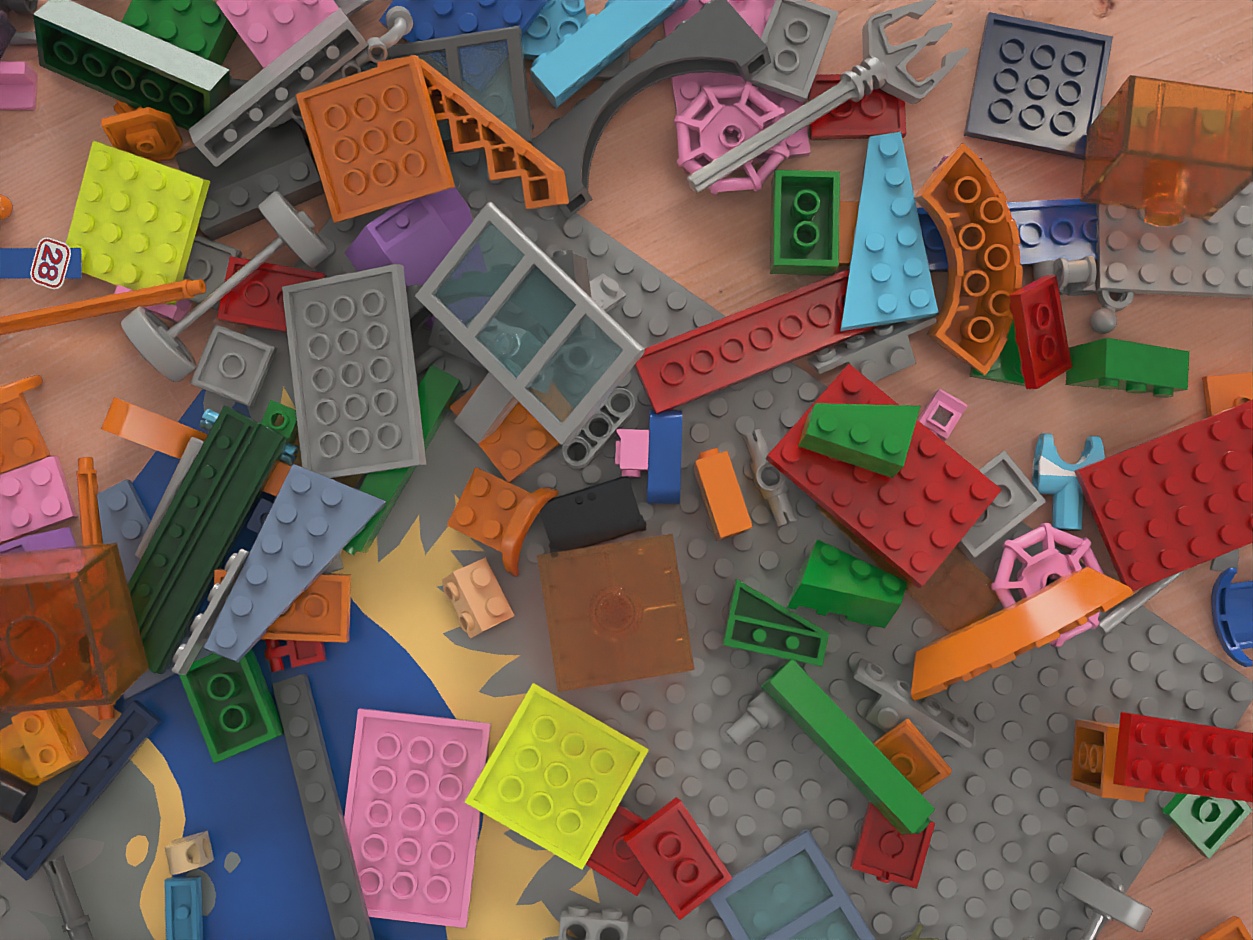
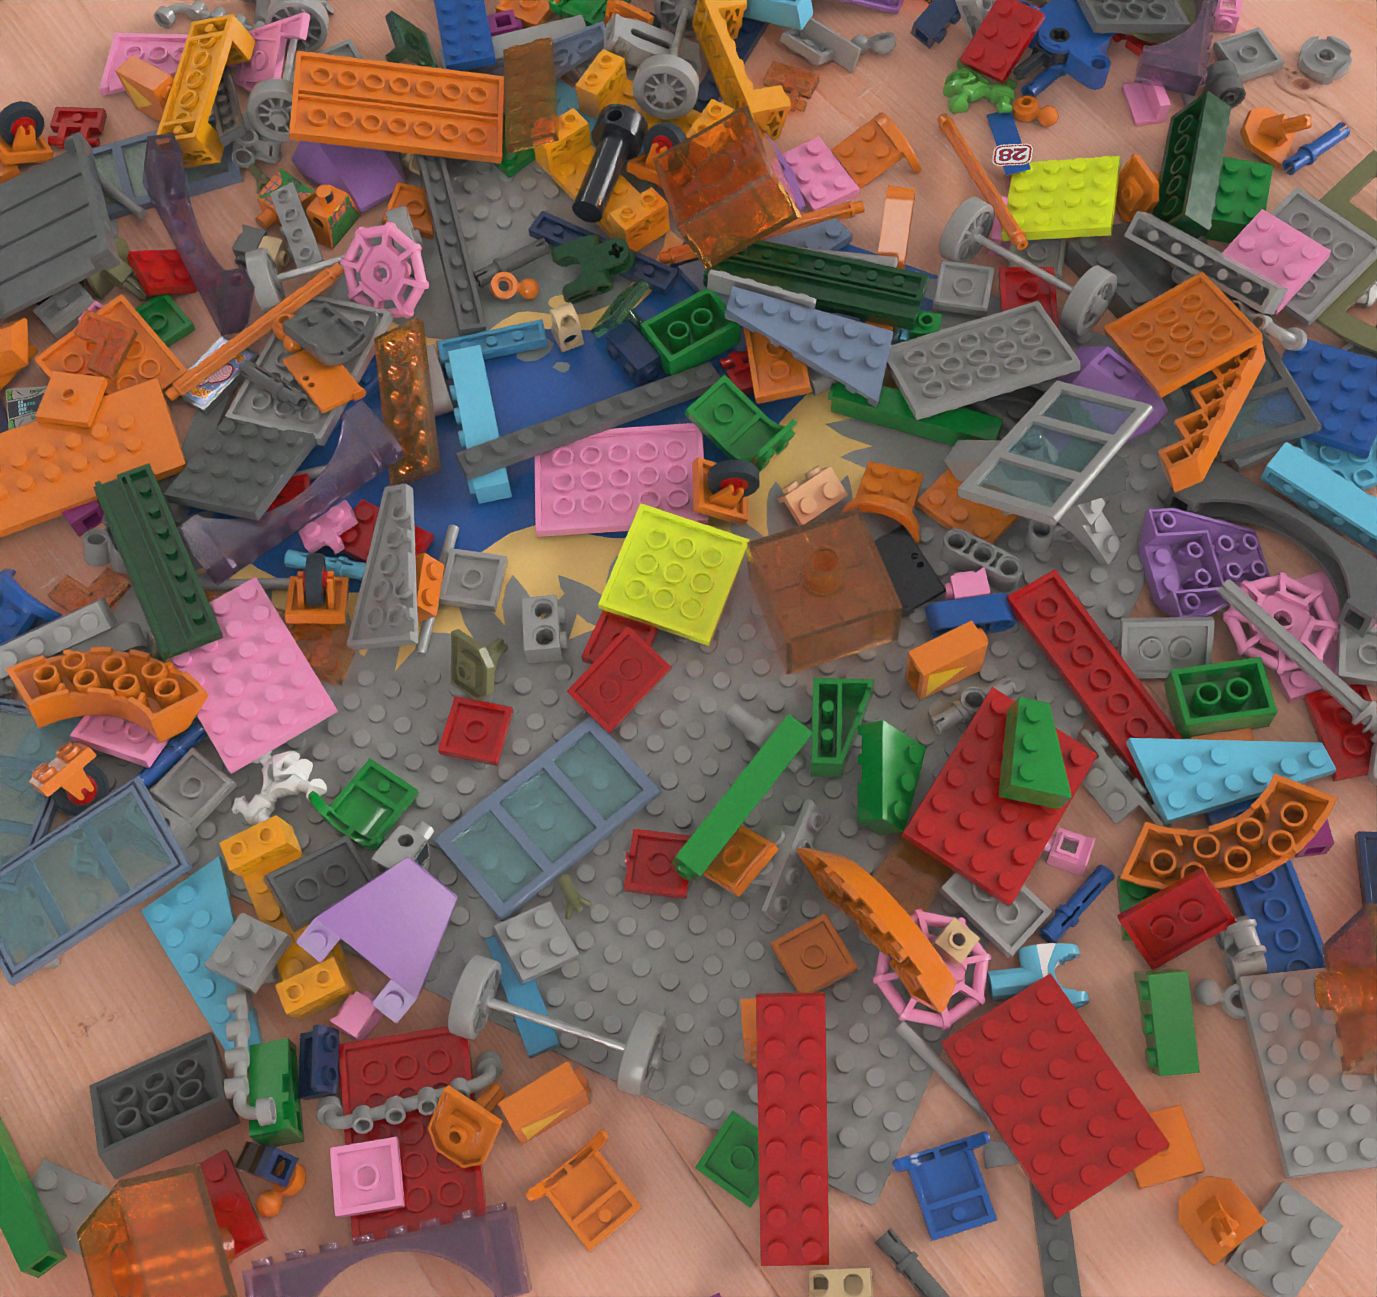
camera: 85 degrees right, 20 degrees down
(104, 803) = (597, 262): none -> dark green piece
(111, 891) = (527, 288): none -> orange plate
(182, 781) = (621, 310): none -> clear green tile
(241, 773) = (633, 352): none -> dark blue brick
(377, 665) = (739, 425): none -> green bracket
(458, 702) = (724, 488): none -> plate
(644, 201) = (1192, 557): none -> medium lavender wedge
(737, 260) = (1162, 644): none -> light grey plate
(995, 423) = (1068, 914): none -> blue pin
(1017, 701) = (813, 956): none -> orange plate
(1031, 557) = (946, 948): none -> tan plate

